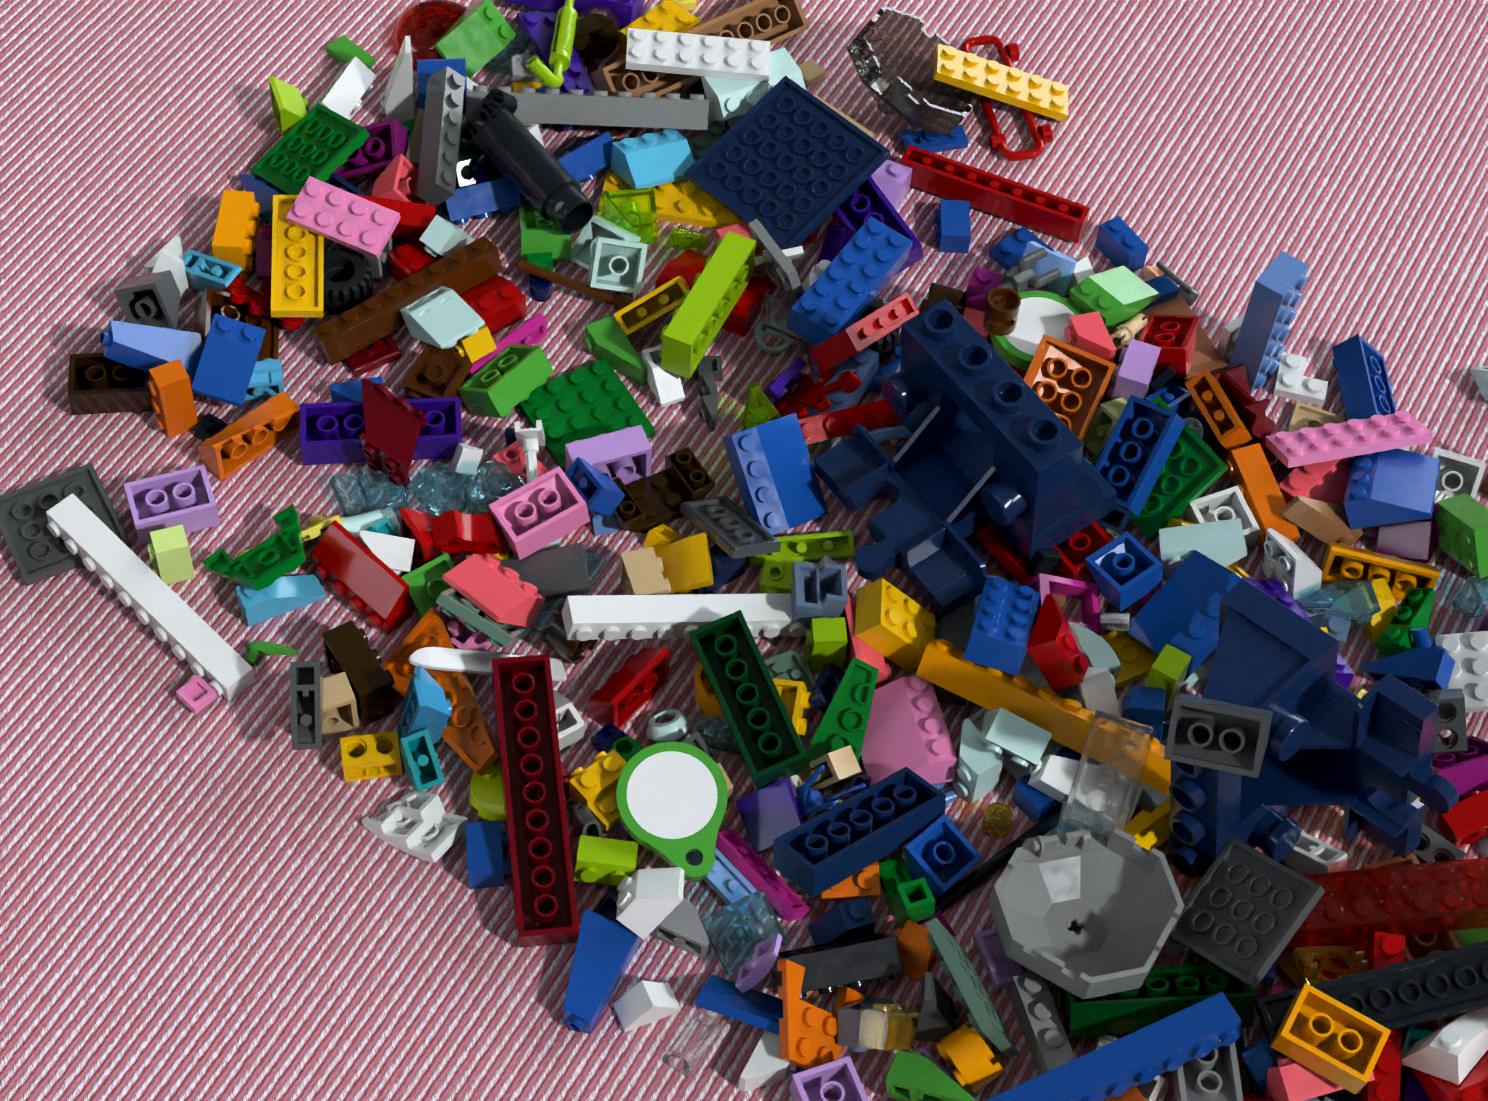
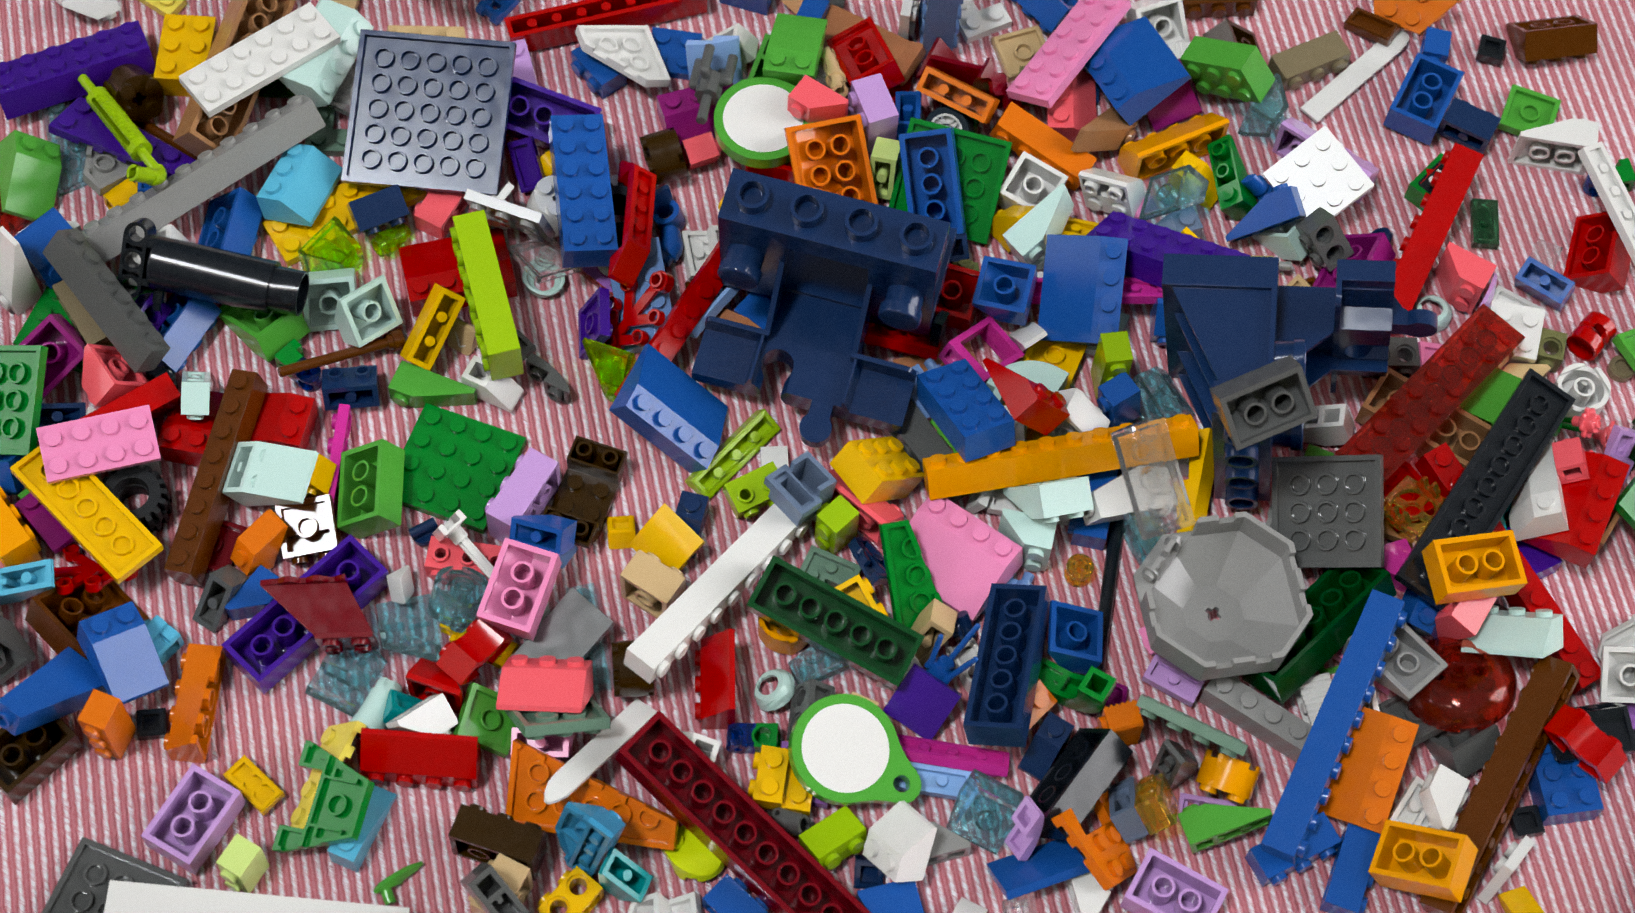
camera: 40 degrees left, 10 degrees up
(235, 515) = (254, 785): none -> yellow plate
(337, 371) = (217, 593): none -> dark grey slope
(393, 362) = (259, 543): none -> orange slope
(562, 310) = (351, 386): none -> dark blue brick
(692, 209) = (378, 210): none -> dark blue brick
(730, 527) = (674, 482): dark grey tile -> none
(963, 710) = (978, 501): none -> white tile
(981, 223) = (626, 50): none -> white plate
(1001, 311) = (729, 128): reddish brown wheel -> none
(1163, 377) = (895, 89): black tile -> none

